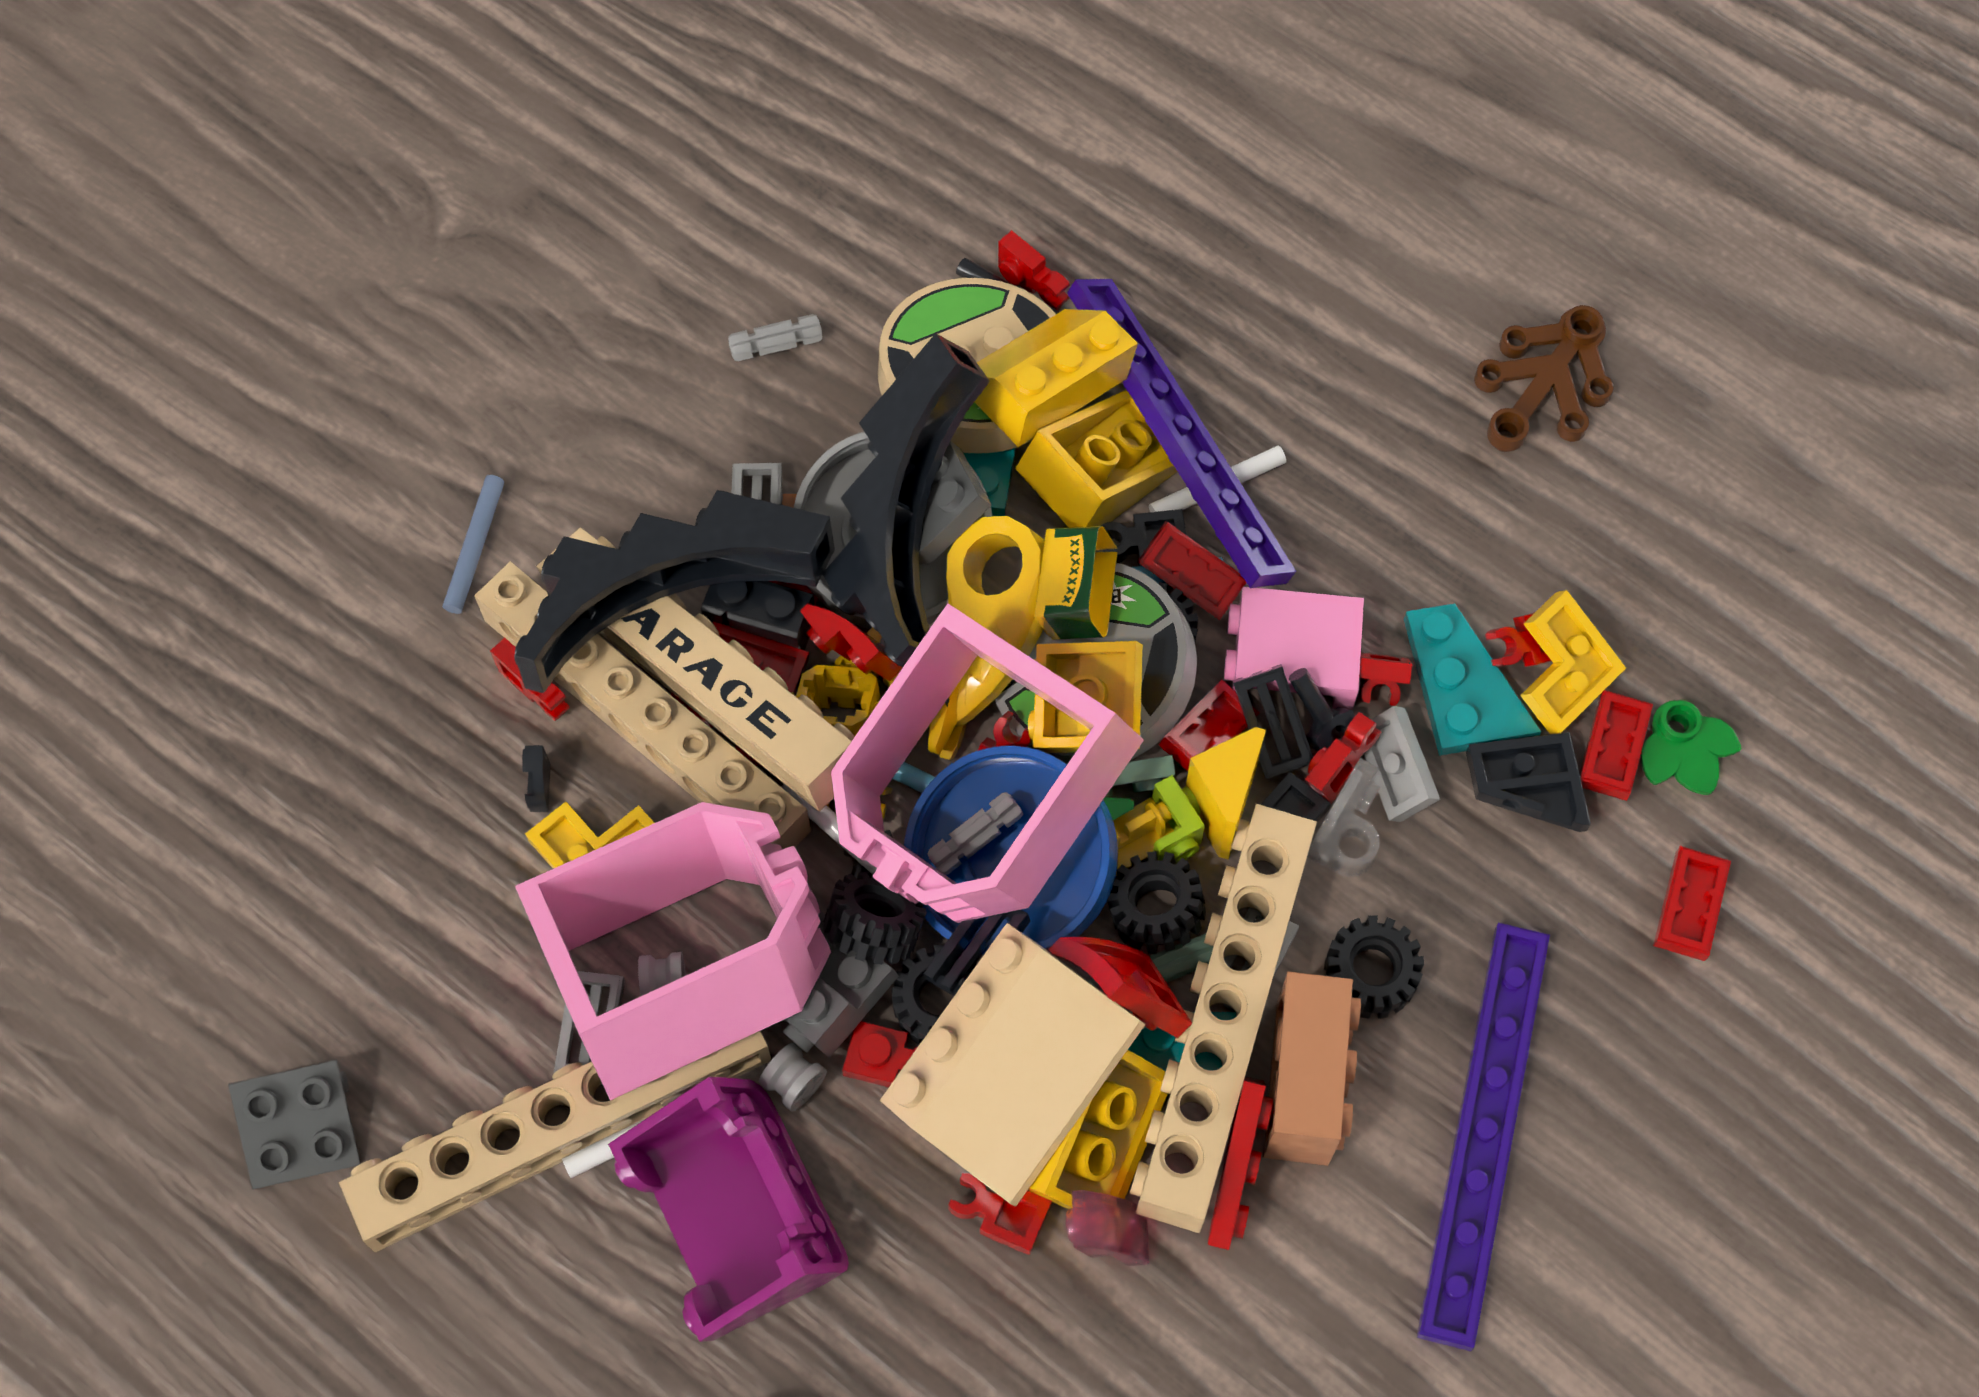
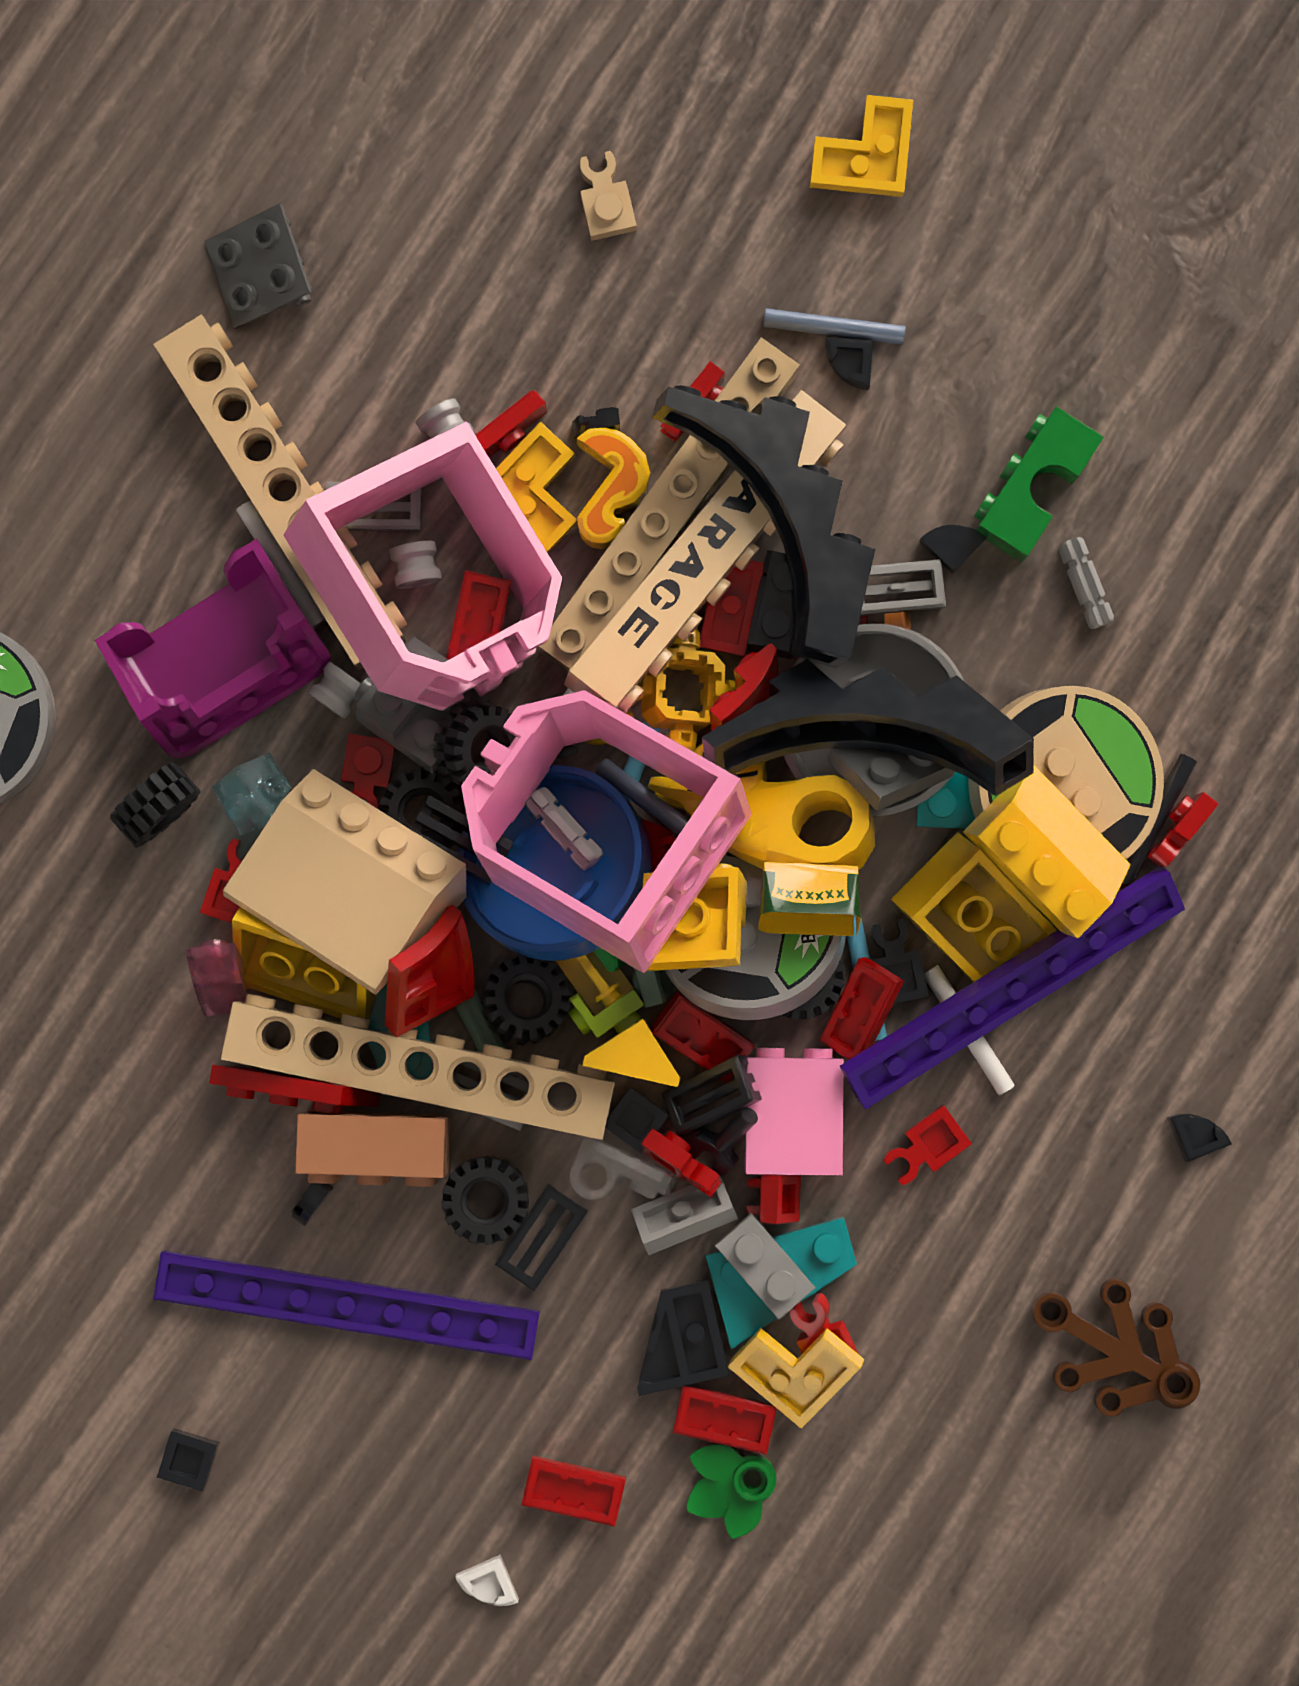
camera: 80 degrees right, 20 degrees up
(300, 754) = (606, 203): none -> tan plate
(306, 484) = (875, 162): none -> yellow plate
(512, 531) = (851, 360): none -> black tile
(513, 935) = (440, 418): none -> light grey wheel
(521, 864) = (508, 428): none -> red plate
(609, 755) = (620, 490): none -> yellow animal
(696, 393) = (1059, 448): none -> green arch
(718, 453) = (952, 544): none -> black tile
(725, 916) = (478, 611): none -> red plate
(901, 1286) = (155, 804): none -> black tyre
(902, 1173) = (252, 793): none -> clear light blue brick
(966, 741) = (642, 796): none -> sand blue bar
(1333, 521) = (933, 1140): none -> red plate
(1336, 292) = (1197, 1135): none -> black tile
(1368, 1156) = (310, 1202): none -> black tile
(1426, 900) = (518, 1271): none -> black tile
(1455, 683) = (765, 1266): none -> light grey plate
(1659, 1325) = (188, 1459): none -> black tile
(1792, 1003) = (489, 1583): none -> white tile

